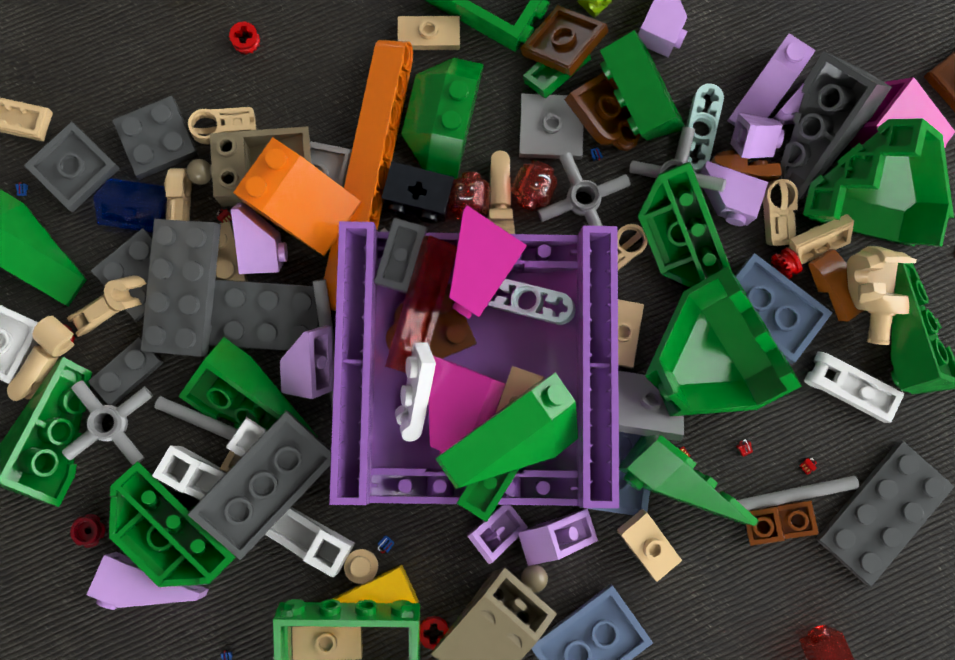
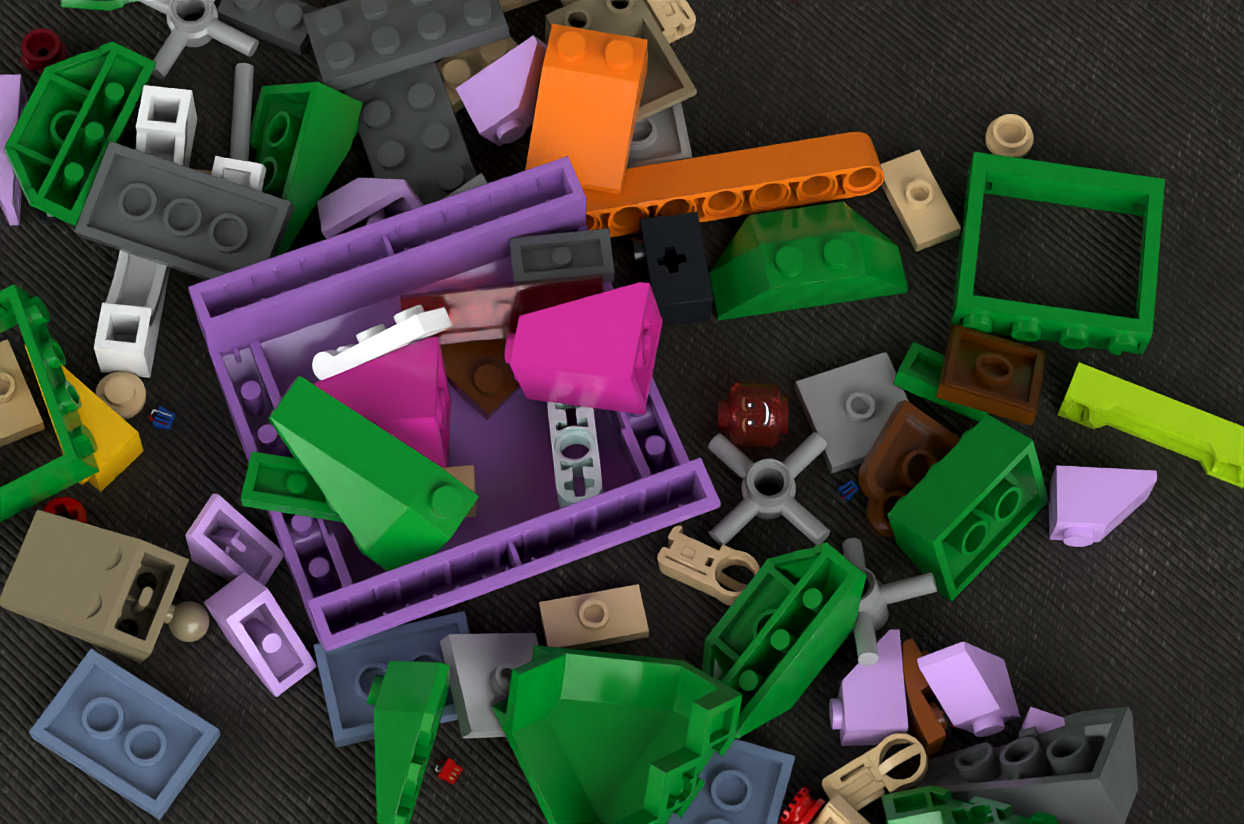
camera: 70 degrees right, 15 degrees down
(469, 191) = (697, 335): clear red head -> none
(500, 195) = (689, 393): tan piece -> none
(649, 545) = (295, 760): tan plate -> none
(711, 118) = (991, 600): light aqua beam -> none
(774, 79) = (1078, 686): lavender slope -> none

